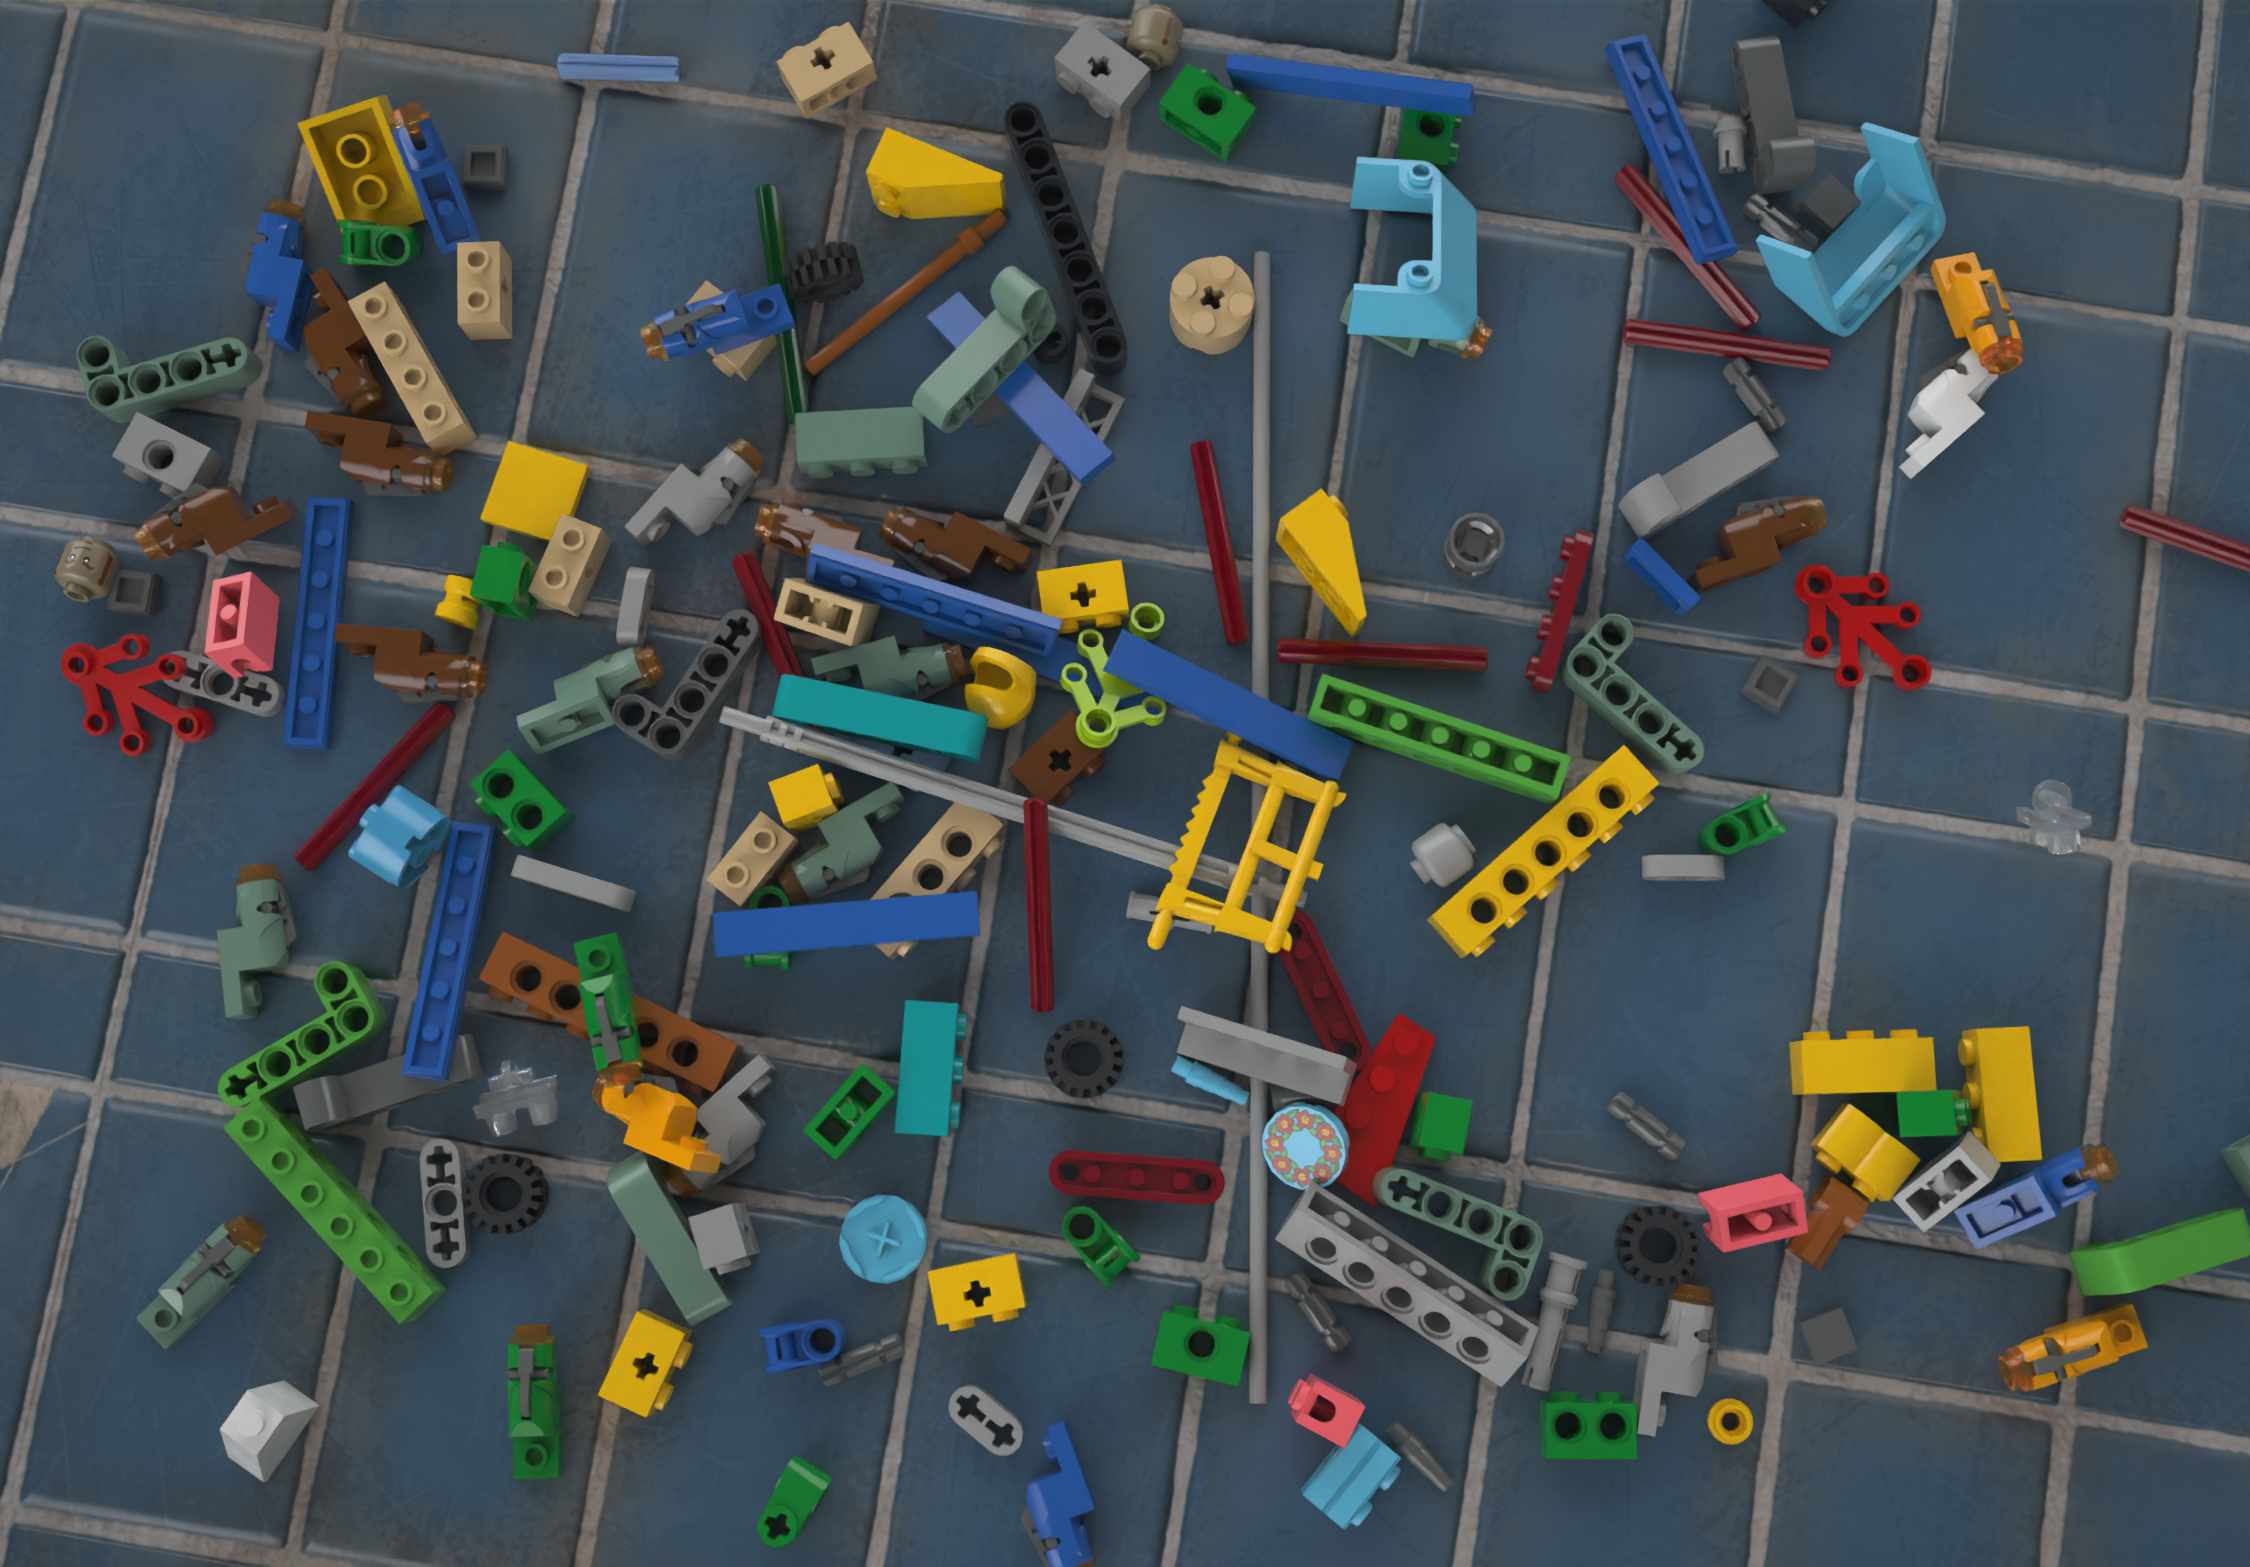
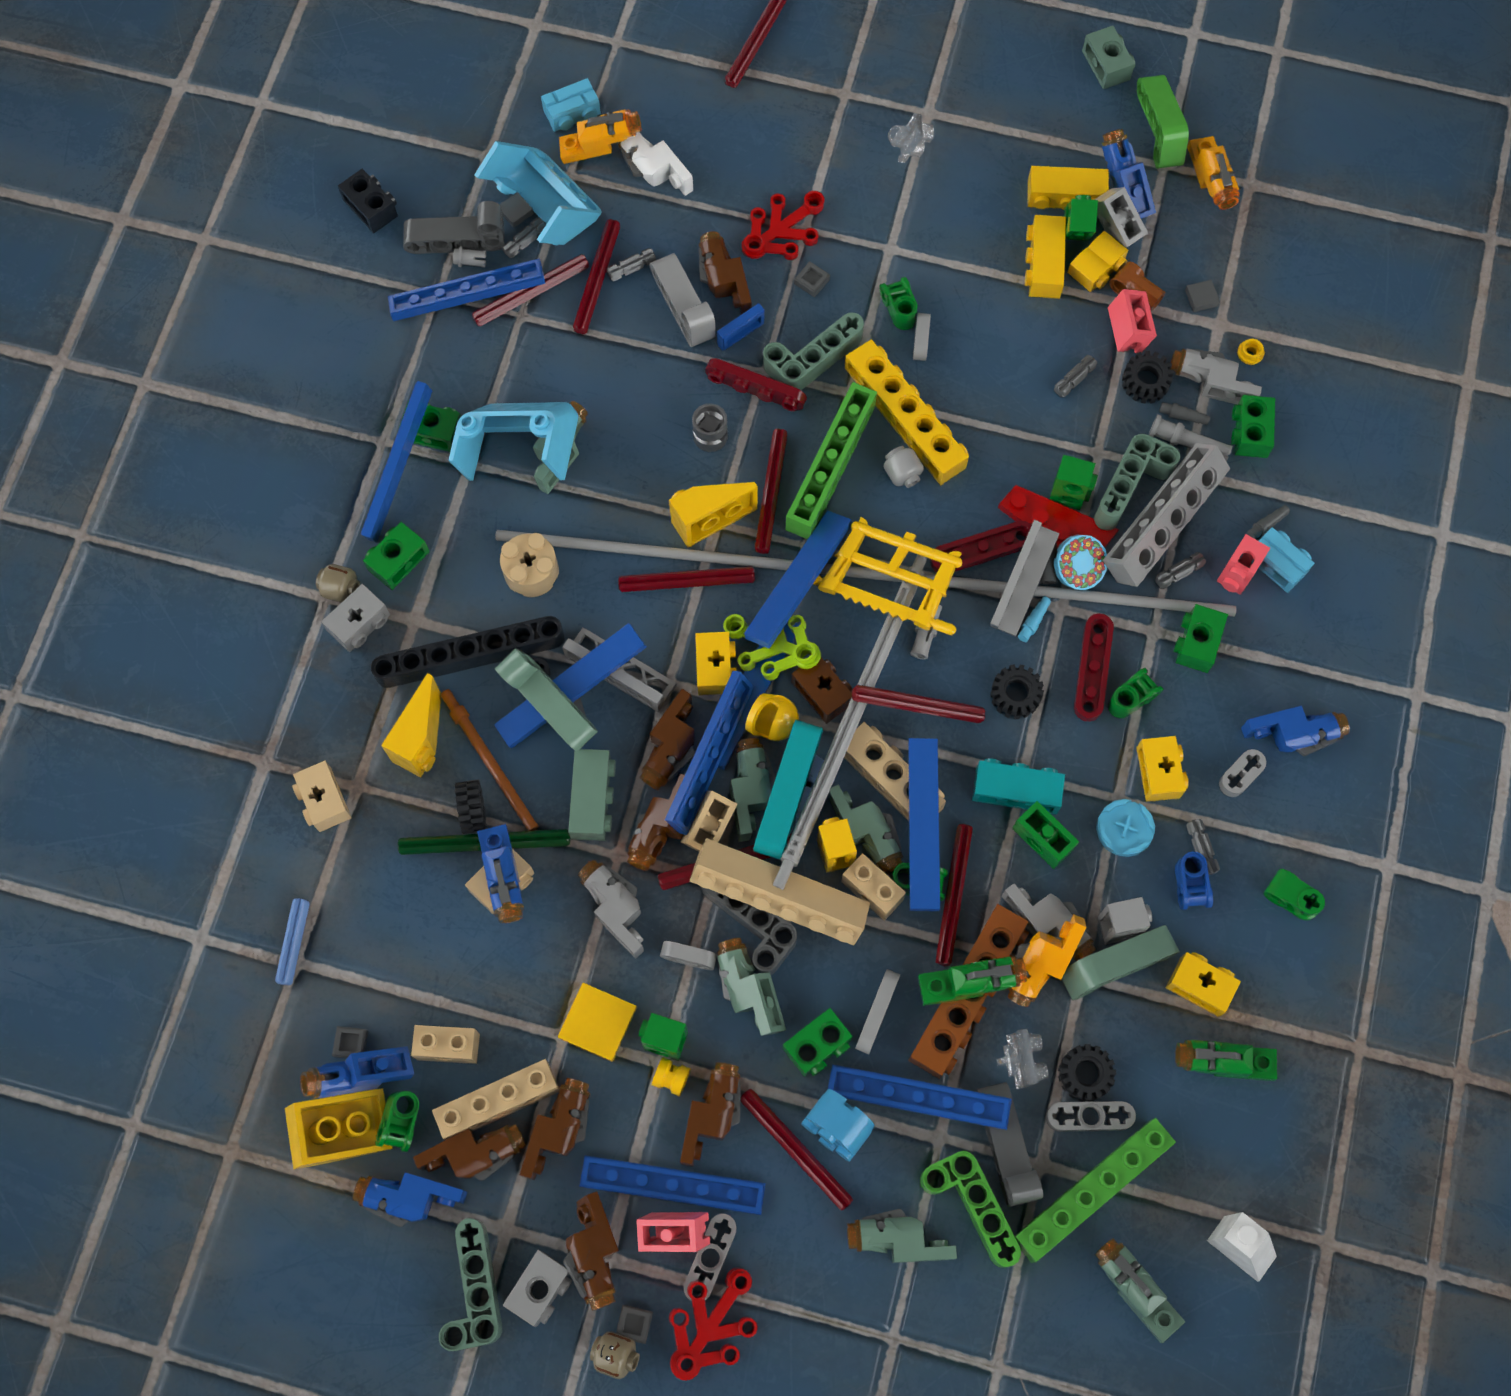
camera: 85 degrees left, 10 degrees down
(570, 565) = (654, 995): tan brick -> none
(716, 753) = (800, 901): none -> tan brick
(758, 983) = (954, 895): none -> dark red axle
(2035, 262) = (570, 105): none -> medium azure brick

